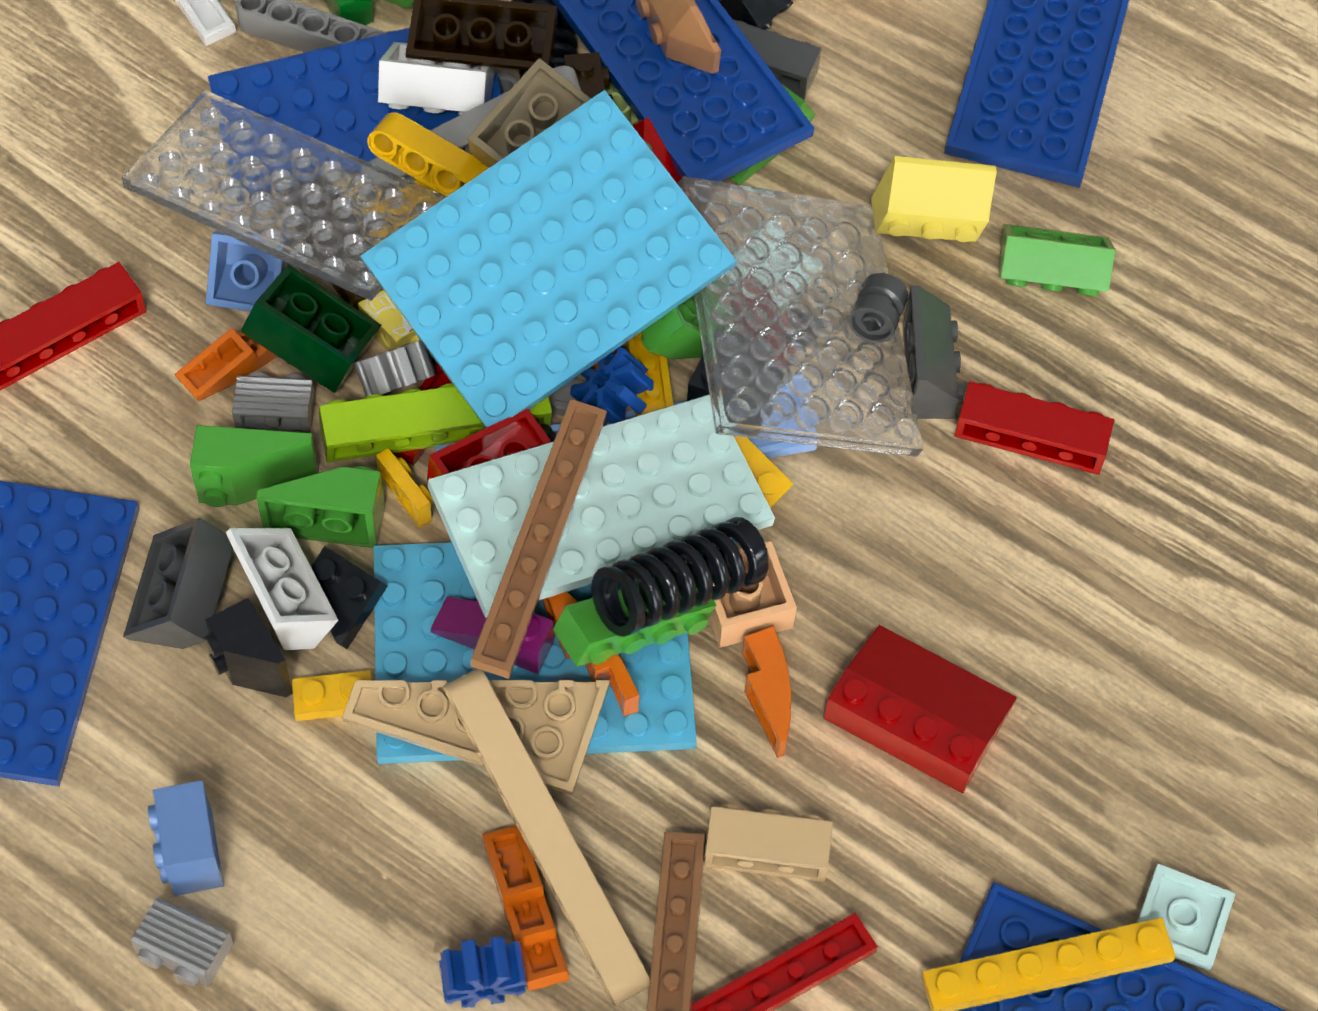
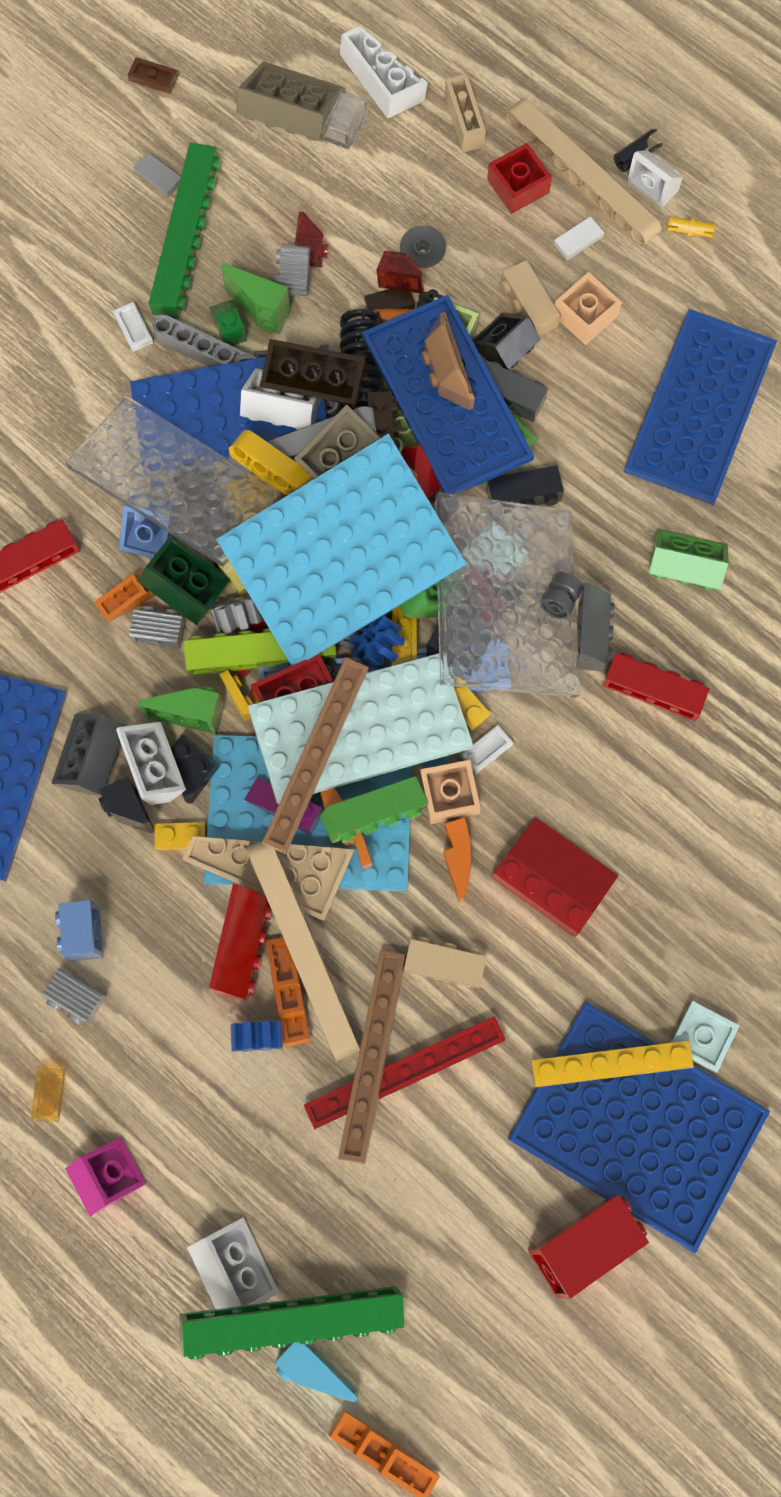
camera: 10 degrees right, 15 degrees up
(238, 462) = (134, 674): bright green slope -> none
(445, 835) = (240, 944): none -> red slope
(683, 579) = (370, 820): black piece -> none
(798, 533) = (487, 749): none -> white tile
(818, 174) = (528, 487): none -> black brick
(934, 199) = (610, 514): light yellow slope -> none

